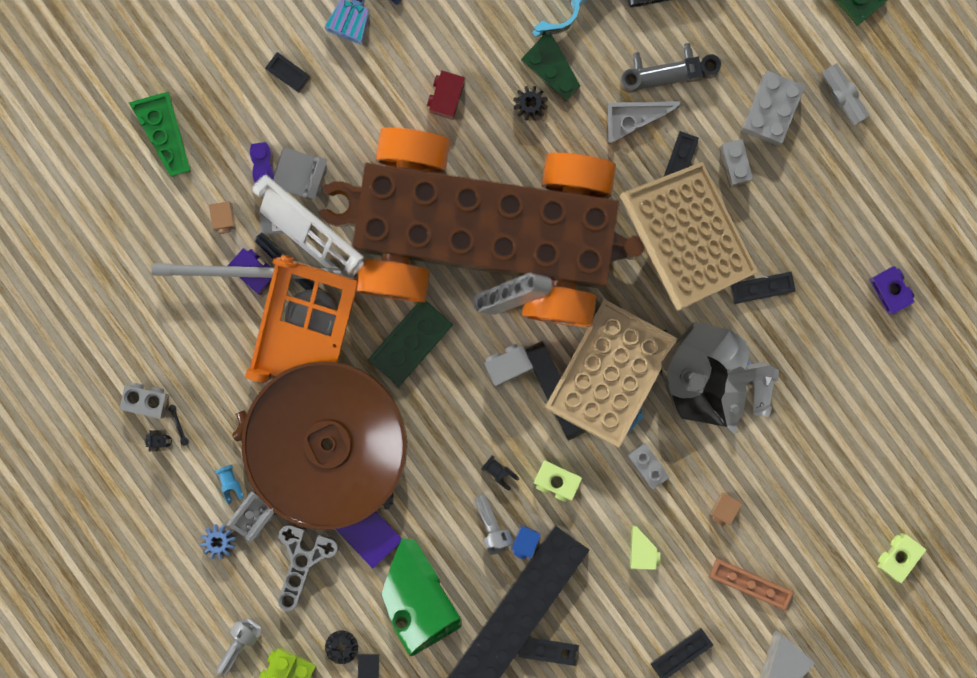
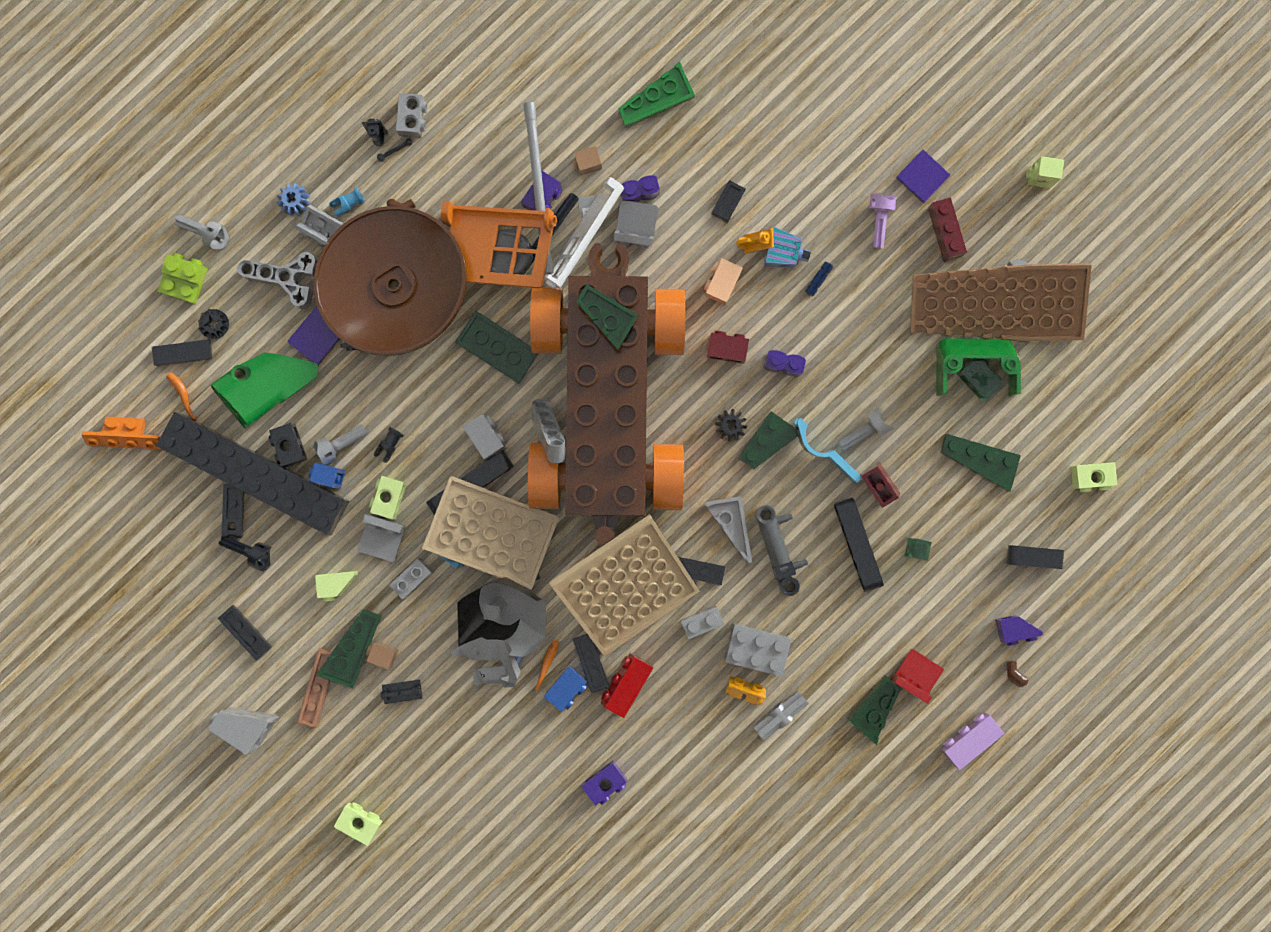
camera: 80 degrees right, 0 degrees up
(336, 47) = (756, 241): none -> light orange hinge
(374, 89) = (723, 281): none -> light nougat brick
(402, 208) = (608, 315): none -> dark green wing
(474, 32) = (789, 364): none -> dark purple brick
(495, 573) = (296, 453): none -> black brick
(600, 494) = (381, 538): none -> light grey bracket
(600, 628) = (257, 555): none -> black piece
(717, 542) = (348, 656): none -> dark green wing
(754, 333) = (548, 658): none -> orange animal
(767, 493) = (401, 691): none -> black hinge
(787, 317) = (565, 688): none -> blue brick
(792, 252) = (626, 685): none -> red brick
(817, 118) = (754, 692): none -> light orange hinge

